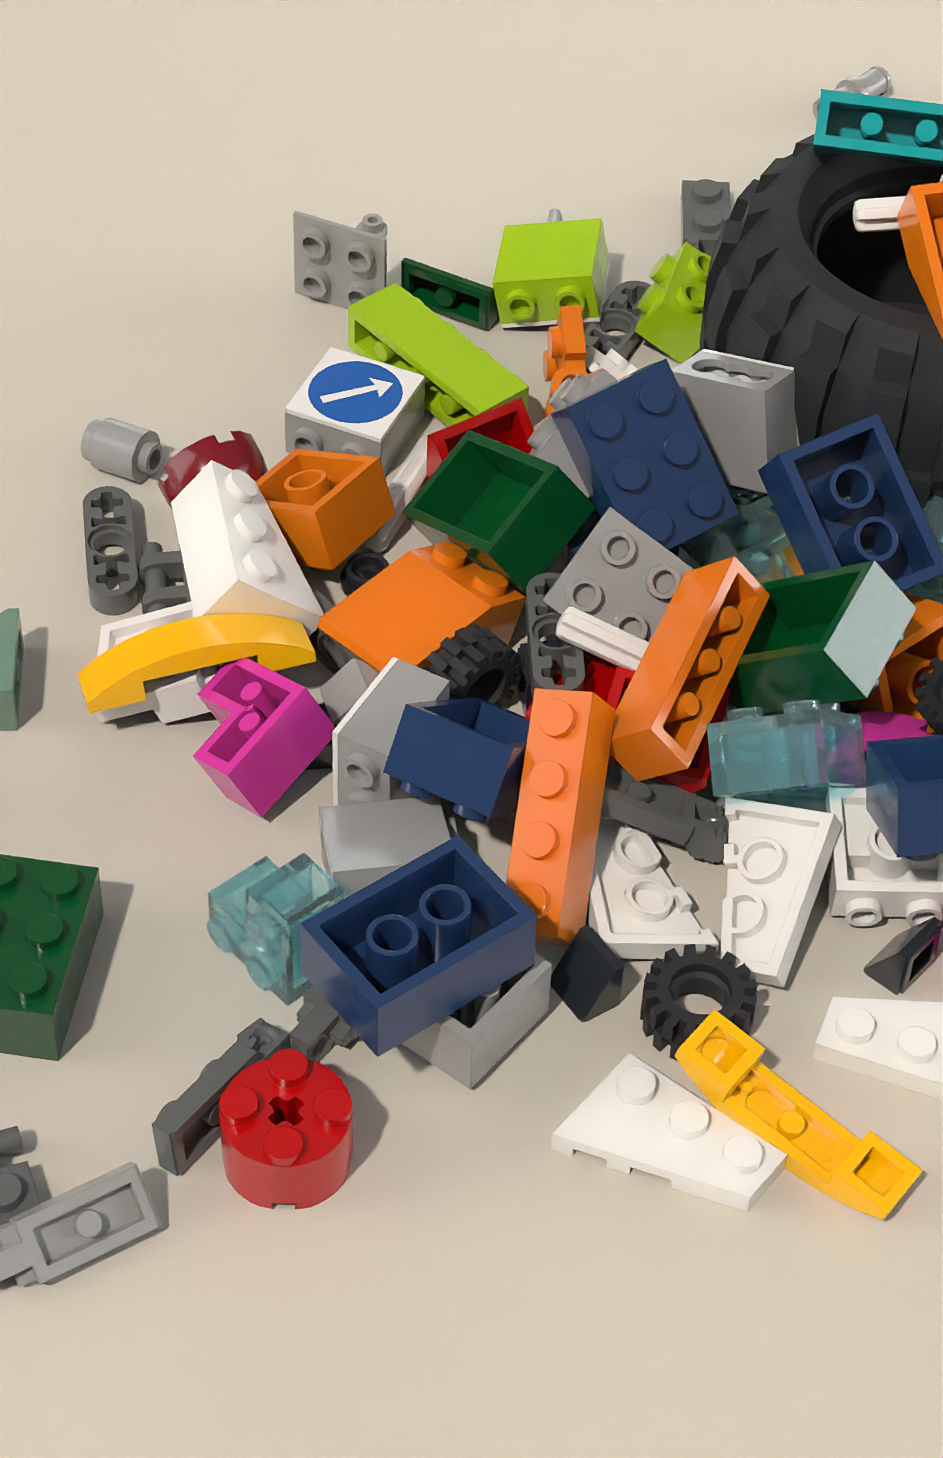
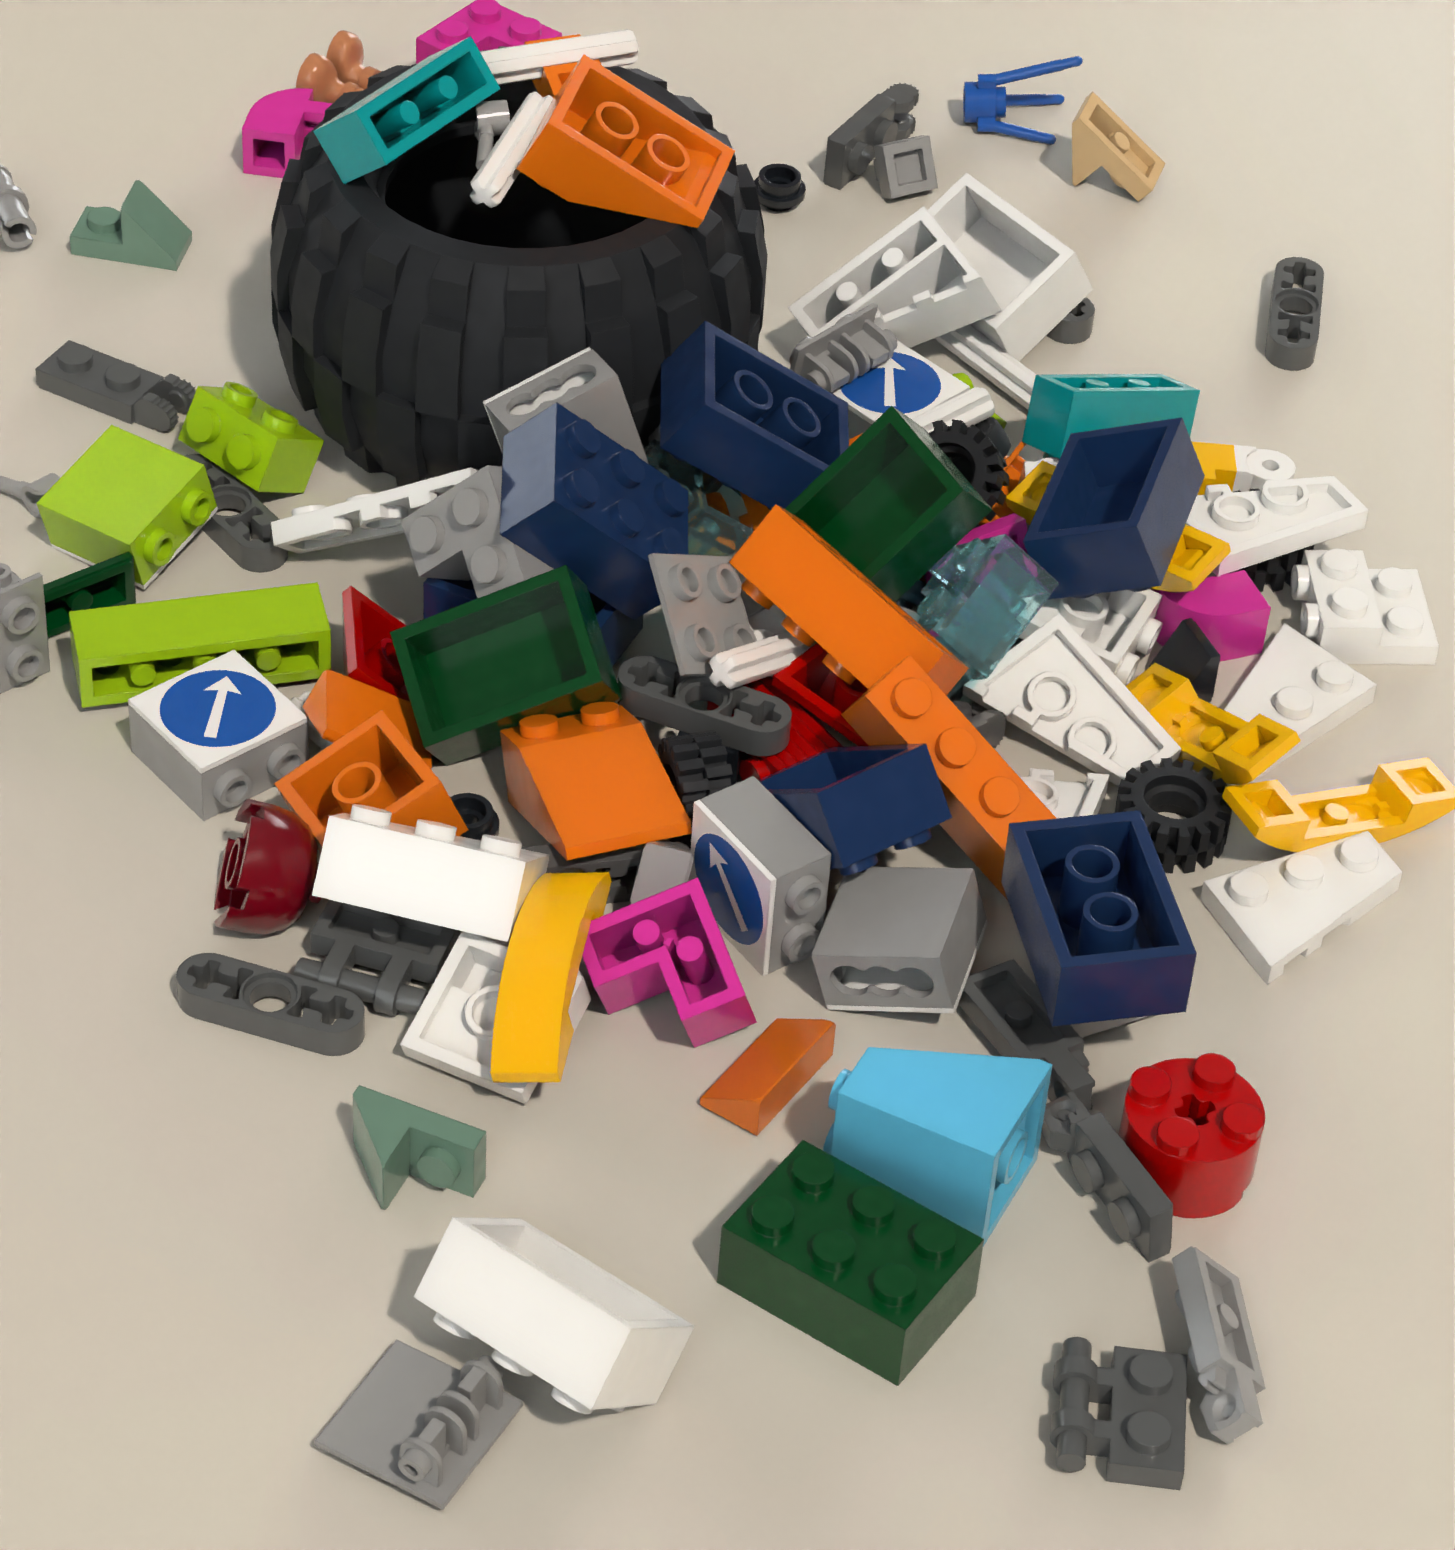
camera: 65 degrees left, 5 degrees down
(122, 449) = (123, 934): light grey brick -> none
(162, 961) = (942, 1128): none -> medium azure slope
(210, 846) = (771, 1072): none -> orange slope
(261, 916) = (956, 1011): clear light blue brick -> none
(405, 463) = (343, 703): none -> orange slope
(565, 350) = (285, 536): orange plate -> none
(832, 968) = (1208, 734): none -> yellow slope

